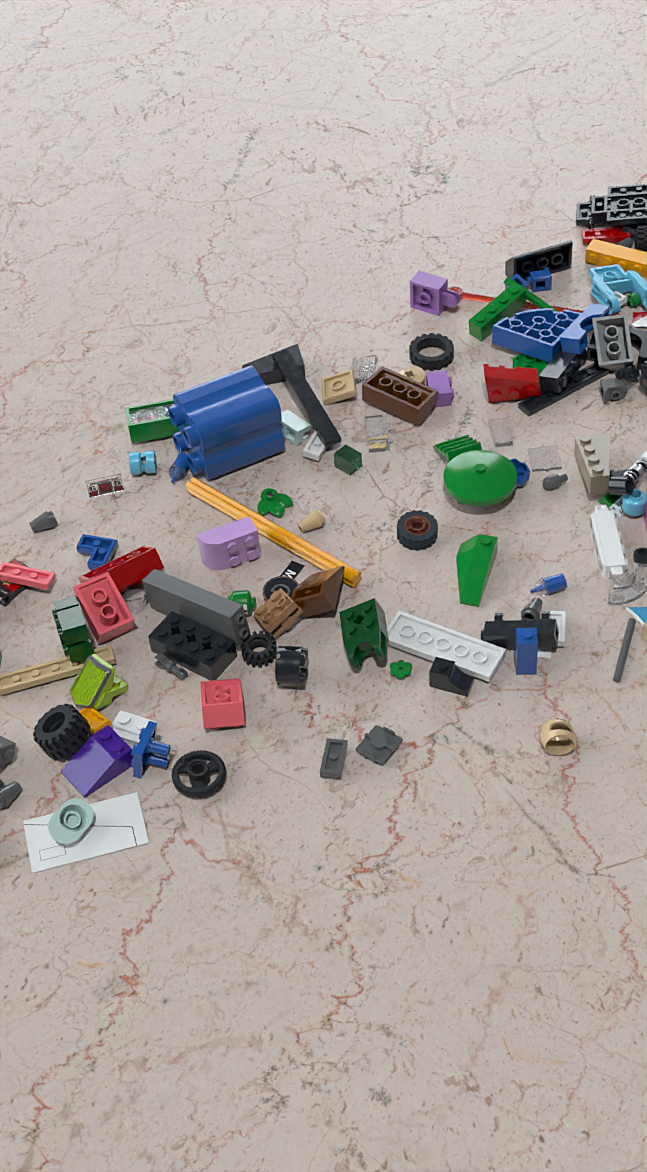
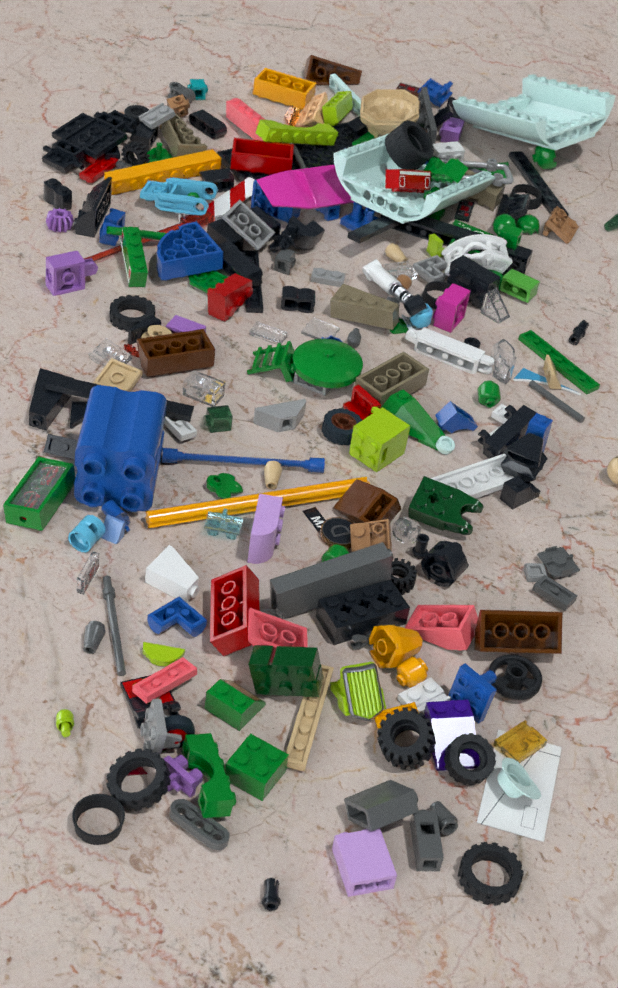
camera: 70 degrees left, 5 degrees down
(35, 623) = (232, 703): none -> green slope
(57, 564) = (161, 654): none -> lime tile
(63, 770) = (453, 763): none -> black tyre
(96, 507) = (109, 595): none -> dark grey bar
(127, 810) = (520, 742): none -> clear yellow plate
(142, 525) = (172, 575): none -> white slope
(149, 706) = (411, 672): none -> light orange head
(162, 474) = (114, 529): none -> medium blue slope
(167, 681) = (393, 645): none -> light orange cone
(218, 517) = (223, 523): none -> clear light blue hips
(240, 750) = (519, 631): none -> reddish brown slope
(283, 392) = (77, 412): none -> black tile
(307, 643) = (420, 548): none -> black pin
(319, 628) = (406, 530): none -> clear head
(350, 538) = (173, 455): none -> blue hose
(353, 734) = (534, 571): none -> light grey tile
(393, 491) = (280, 416): none -> light grey slope
(400, 669) = (486, 514): green plant -> none
(412, 555) = (379, 439): none -> lime container
(425, 364) = (141, 328): none -> black slope
(455, 528) = (361, 402): none -> red bracket
(466, 603) = (445, 445): none -> light aqua tile
(484, 655) = (525, 457): none -> black piece
(501, 254) = (59, 220): none -> medium lavender gear
(506, 591) = (455, 418): none -> blue arch
(515, 527) = (392, 376): none -> dark tan brick
(532, 610) = (484, 419): dark grey cone -> none
(534, 235) = (57, 194): none -> black brick
(549, 585) = (465, 396): blue piece -> none
(565, 423) = (298, 299): none -> black brick
(571, 597) = (489, 394): none -> green head
(575, 337) = (225, 237): blue arch -> none
(628, 425) = (327, 277): none -> light grey plate

